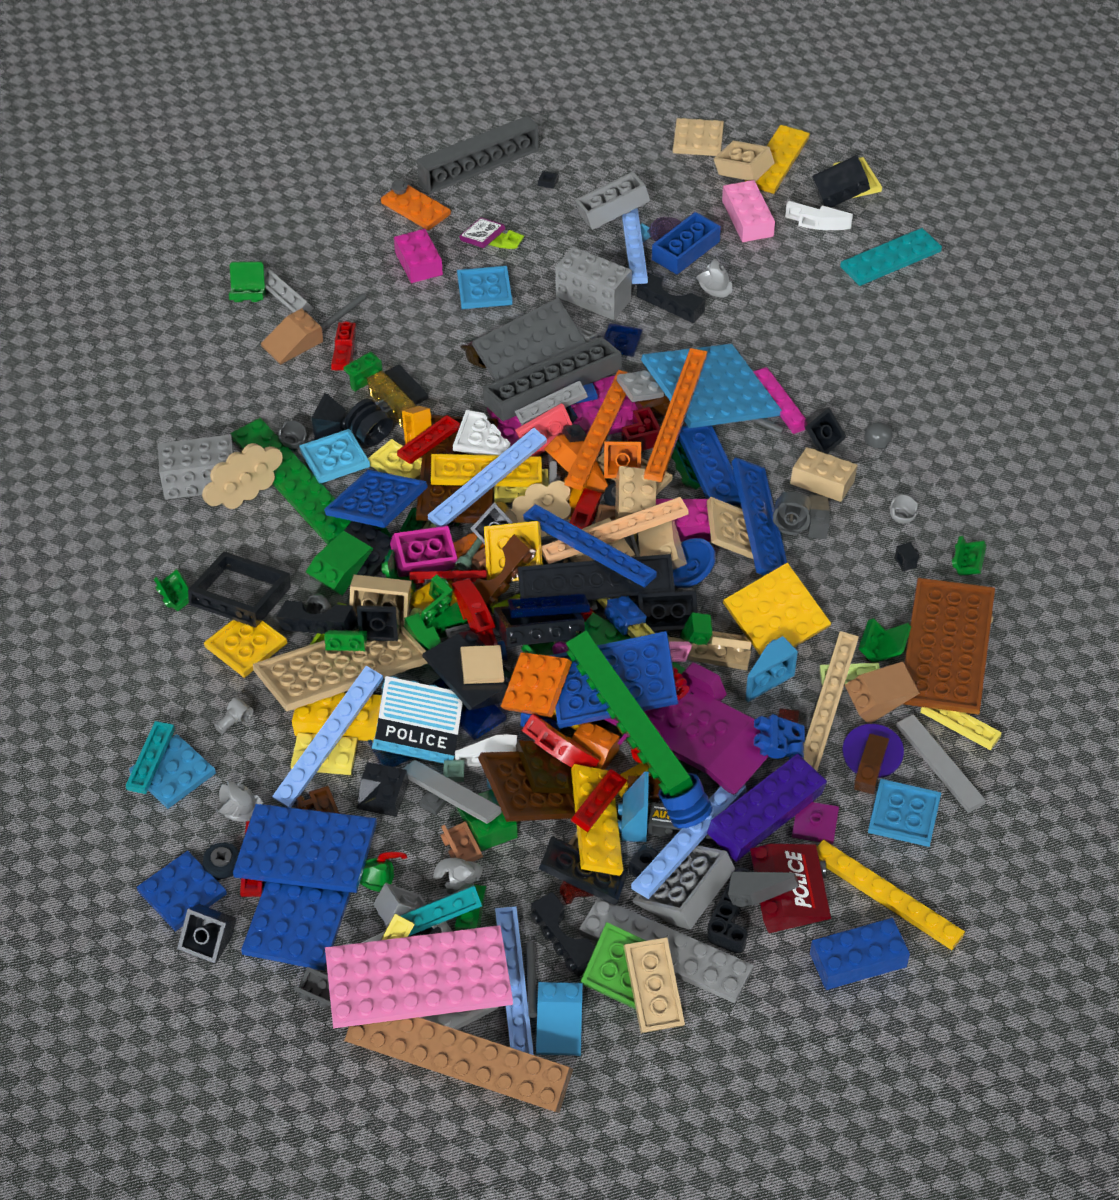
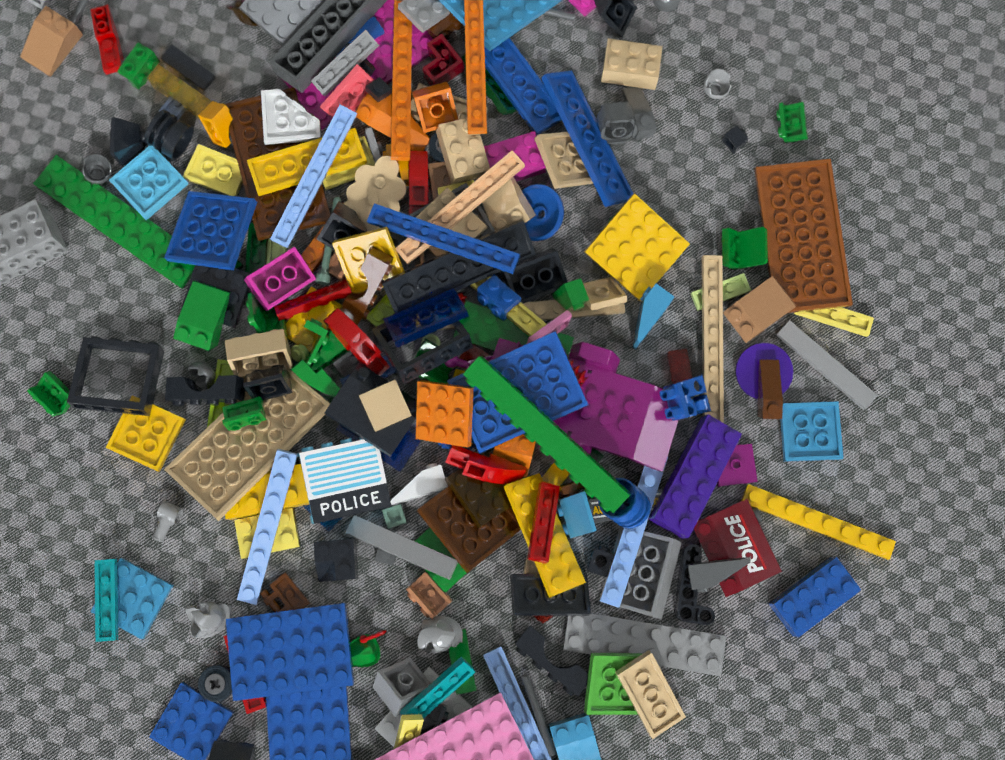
camera: 20 degrees left, 30 degrees up
(242, 476) = (66, 243): tan plate -> none
(428, 439) = (236, 140): red plate -> none

